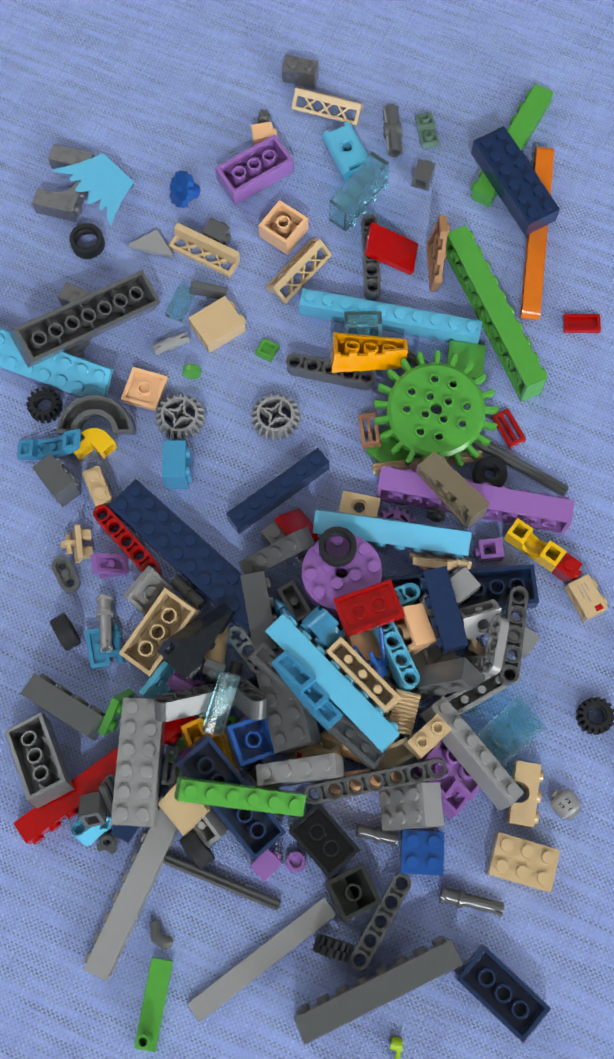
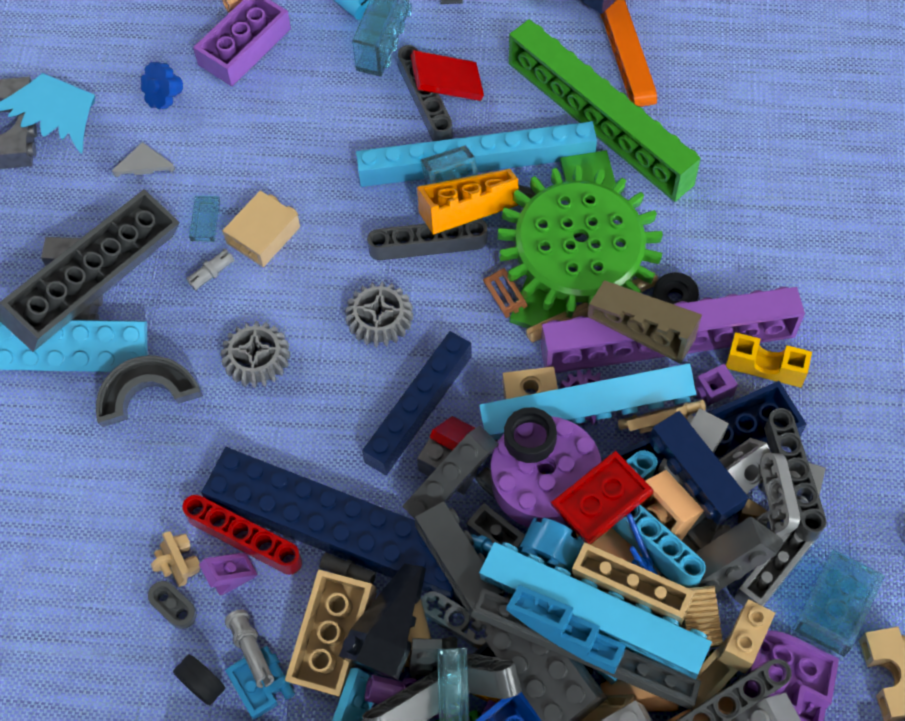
camera: 20 degrees left, 10 degrees down
(40, 396) = (71, 410): black tyre -> none
(57, 446) = (94, 448): dark azure slope -> none
(57, 479) = (118, 483): dark grey brick -> none
(83, 229) = (52, 168): black tyre -> none
(96, 440) = (152, 418): yellow brick -> none
(98, 486) = (176, 474): tan brick -> none
(144, 389) = (195, 335): light nougat plate -> none
(146, 590) = (291, 585): light grey tile -> none
(176, 464) = (274, 411): dark azure brick -> none
(191, 371) = (249, 294): bright green tile -> none
(207, 290) = (234, 191): dark grey tile -> none
(208, 245) = (215, 143): tan fence -> none
(217, 231) = (221, 124): dark grey brick -> none
(267, 350) = (337, 240): bright green tile -> none
(283, 227) = (303, 91): light nougat brick -> none
(293, 267) = (334, 131): tan fence -> none
(436, 514) = (630, 364): dark grey plate -> none
(437, 252) = (504, 62): medium nougat plate -> none
(474, 756) = (814, 646): light grey brick -> none
(522, 438) = (672, 240): red tile -> none
(524, 467) = (713, 275): dark grey axle -> none
(567, 569) = (821, 375): red brick -> none
(581, 323) = (708, 92): red tile -> none
(586, 598) = (858, 402): tan brick -> none

